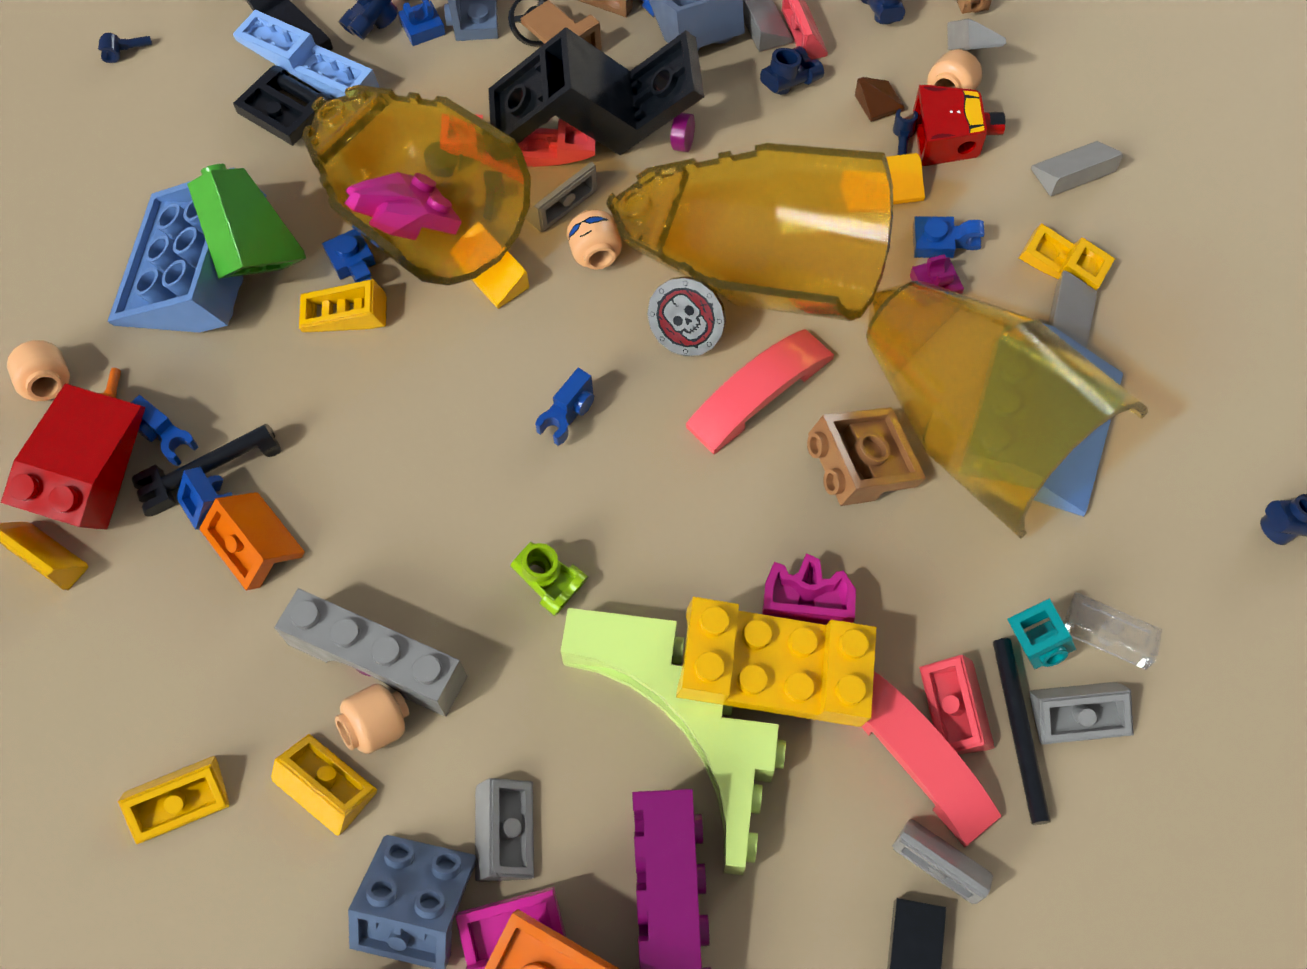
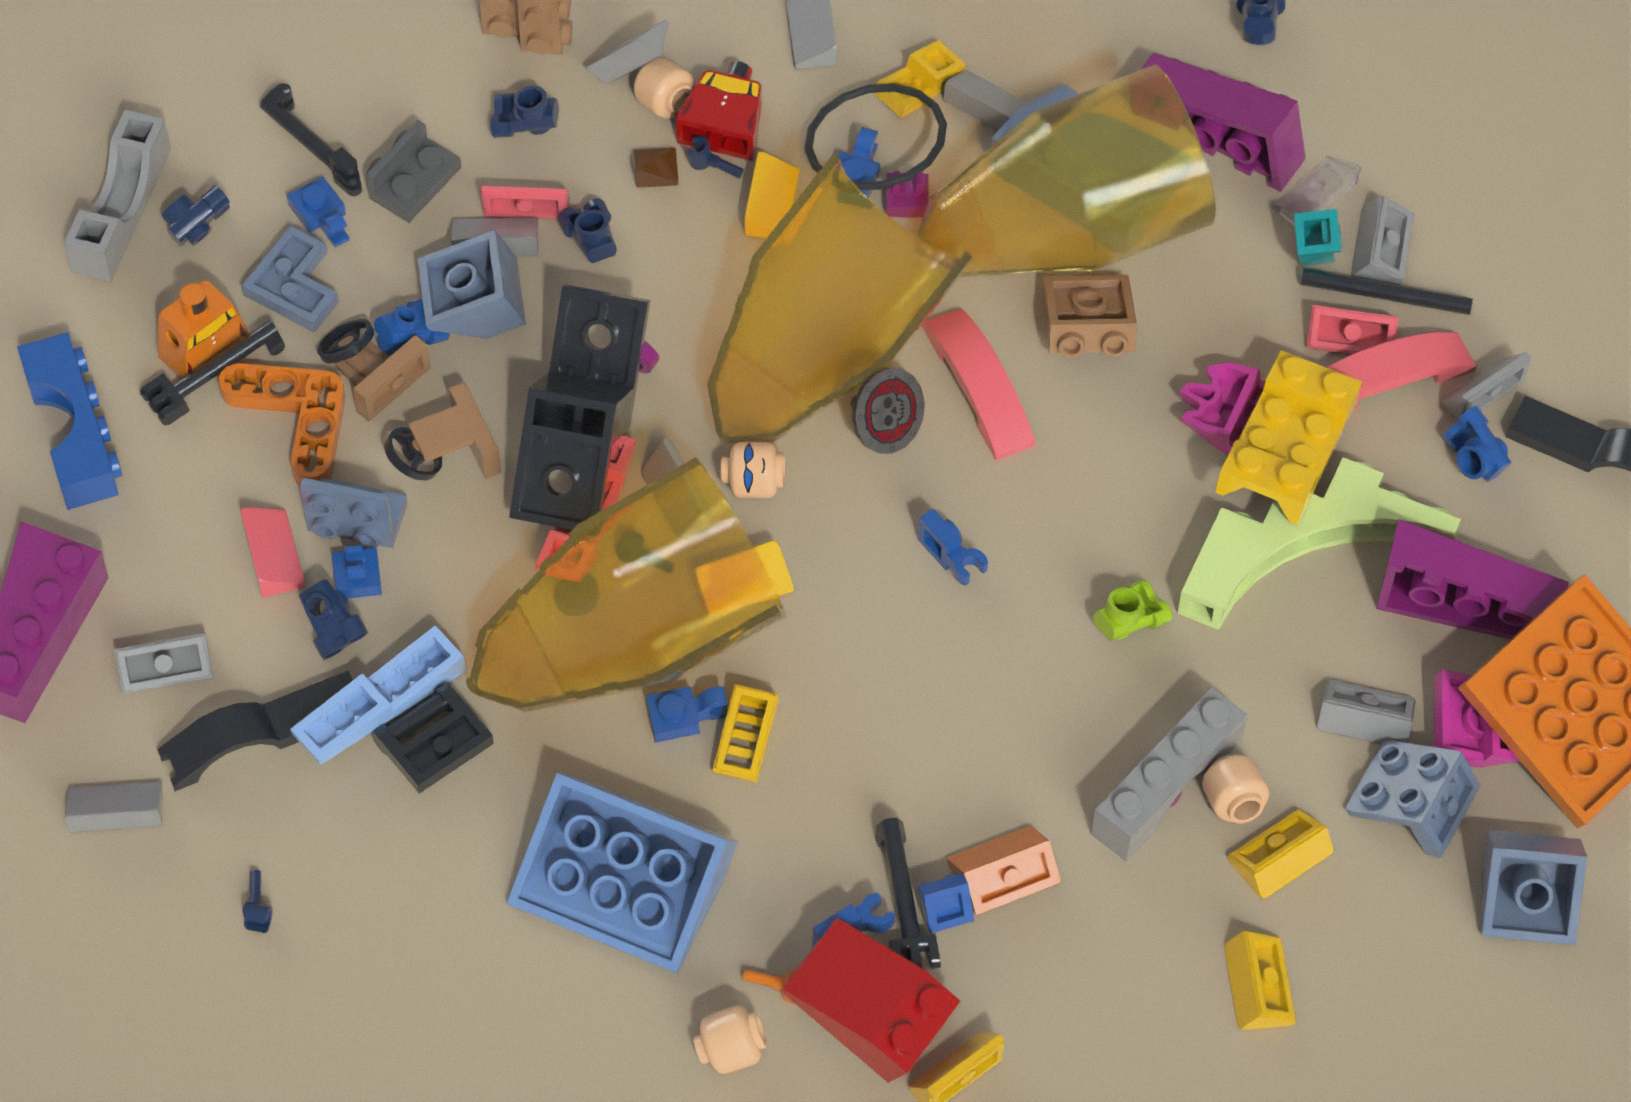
camera: 75 degrees left, 5 degrees down
(241, 224) = (644, 778): bright green slope -> none
(403, 205) = (661, 623): dark pink plate -> none
(853, 874) = (1479, 451): none -> blue plate
(972, 273) = (877, 88): none -> black piece
(1149, 514) = (1239, 120): none -> magenta wedge

